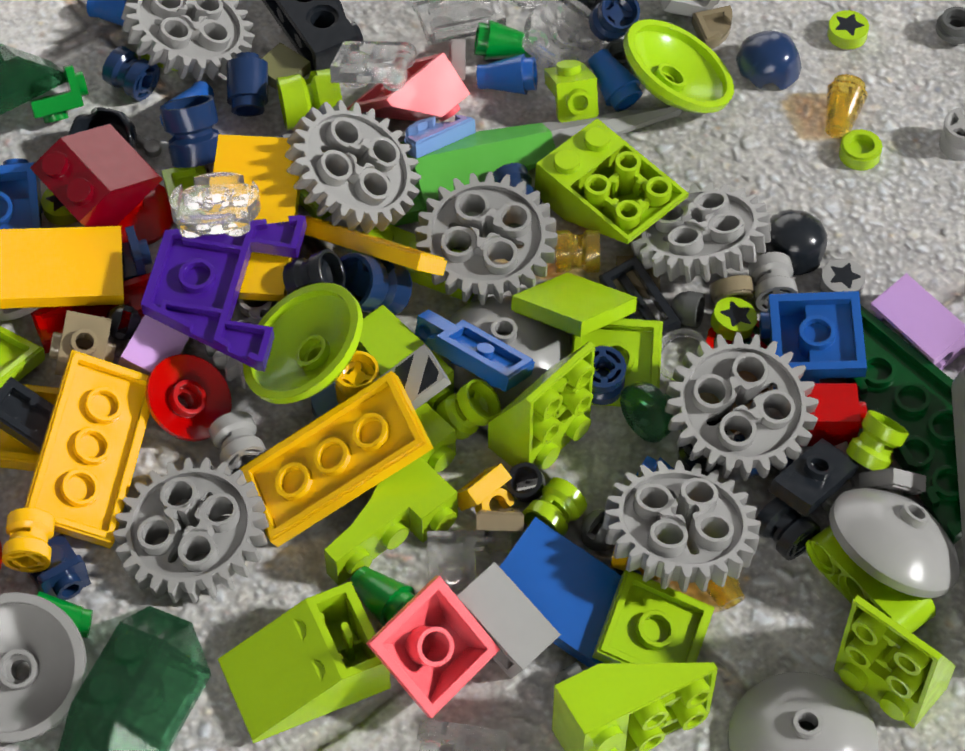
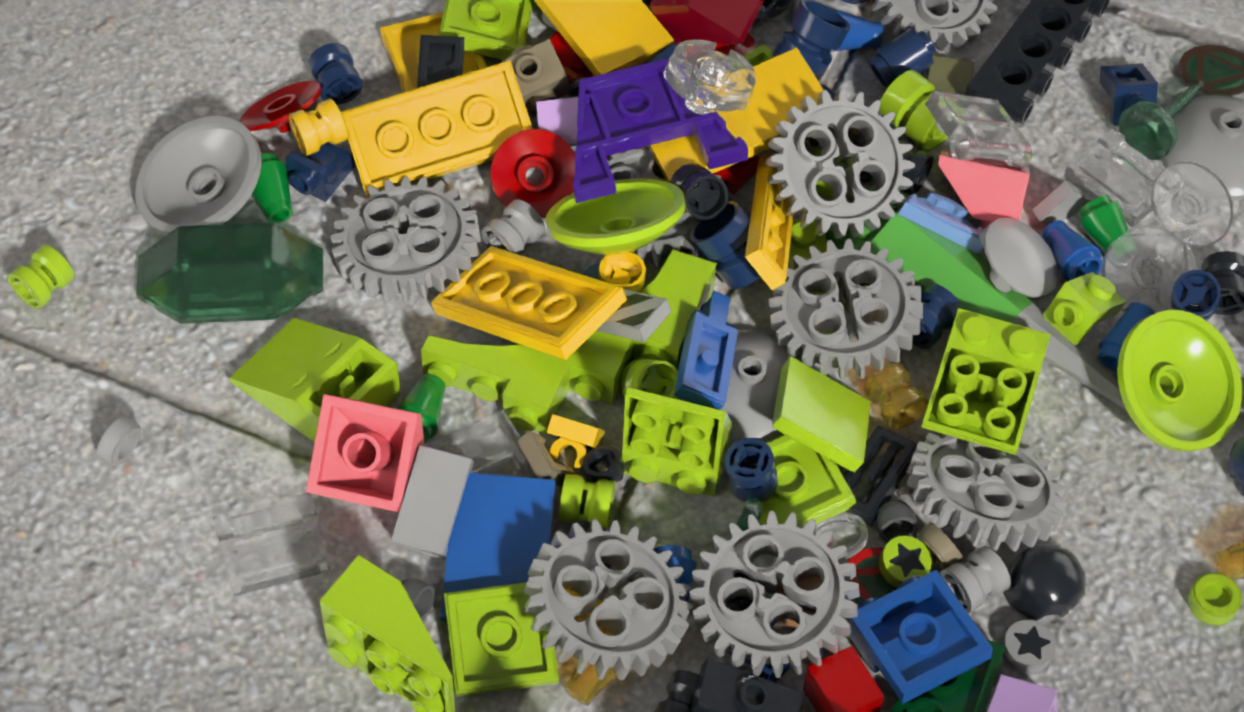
camera: 60 degrees right, 0 degrees up
(503, 106) = (1019, 258): none -> light grey dish

